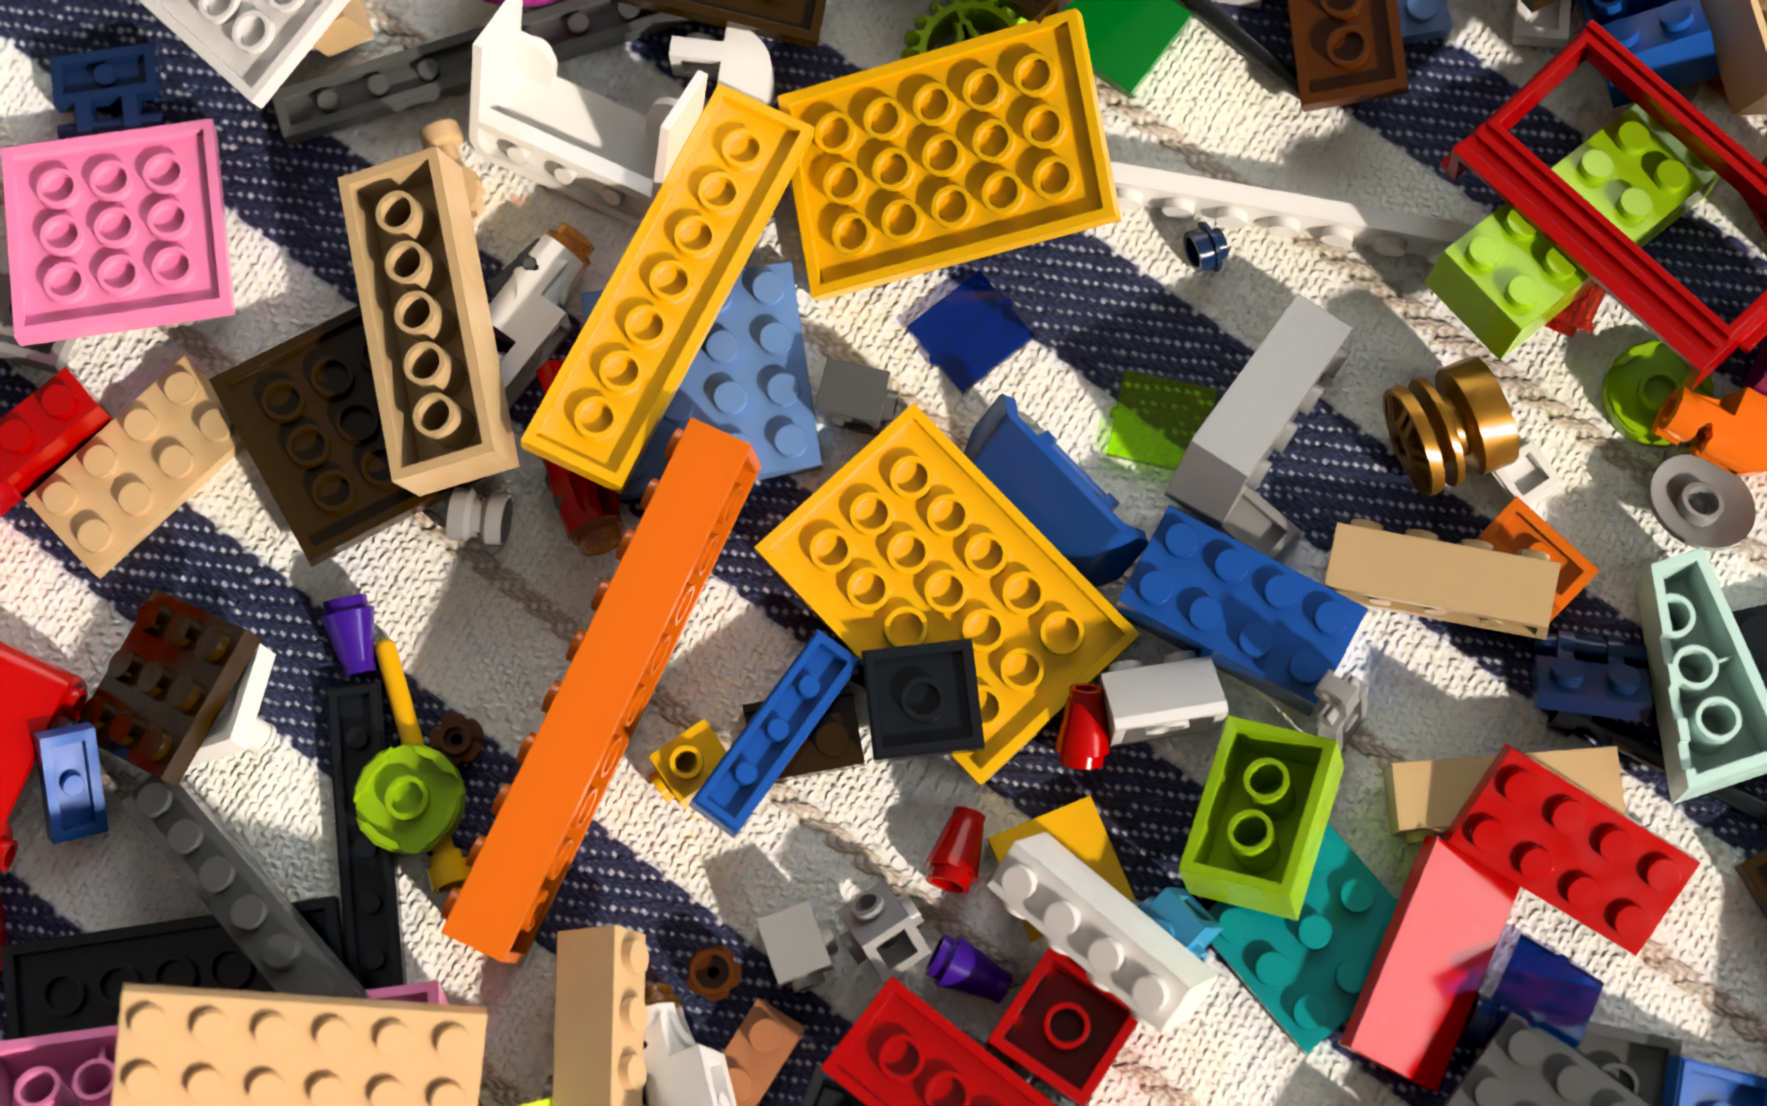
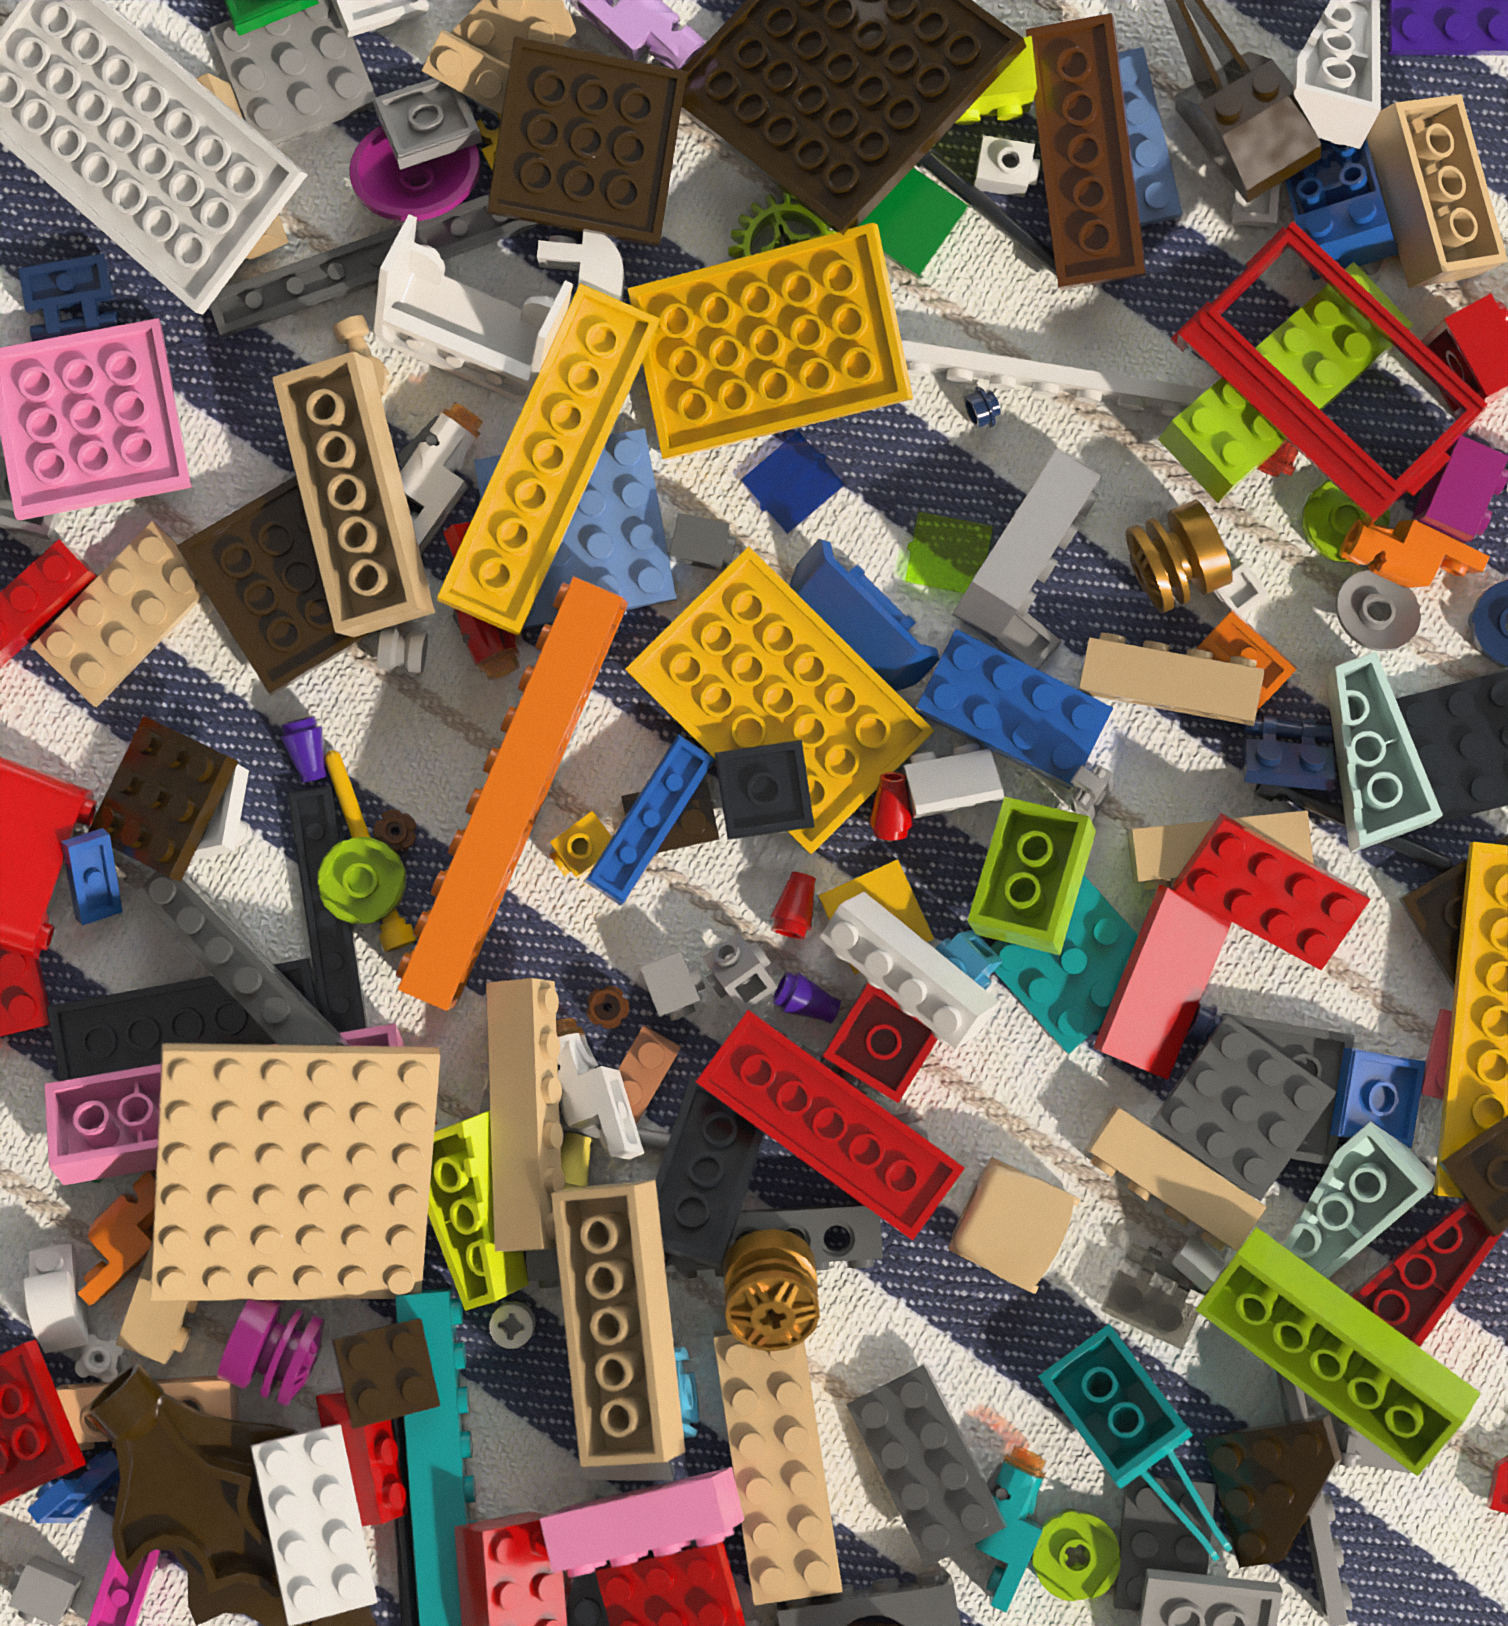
camera: 10 degrees left, 10 degrees up
(1548, 991) = (1252, 1001): clear blue piece -> none

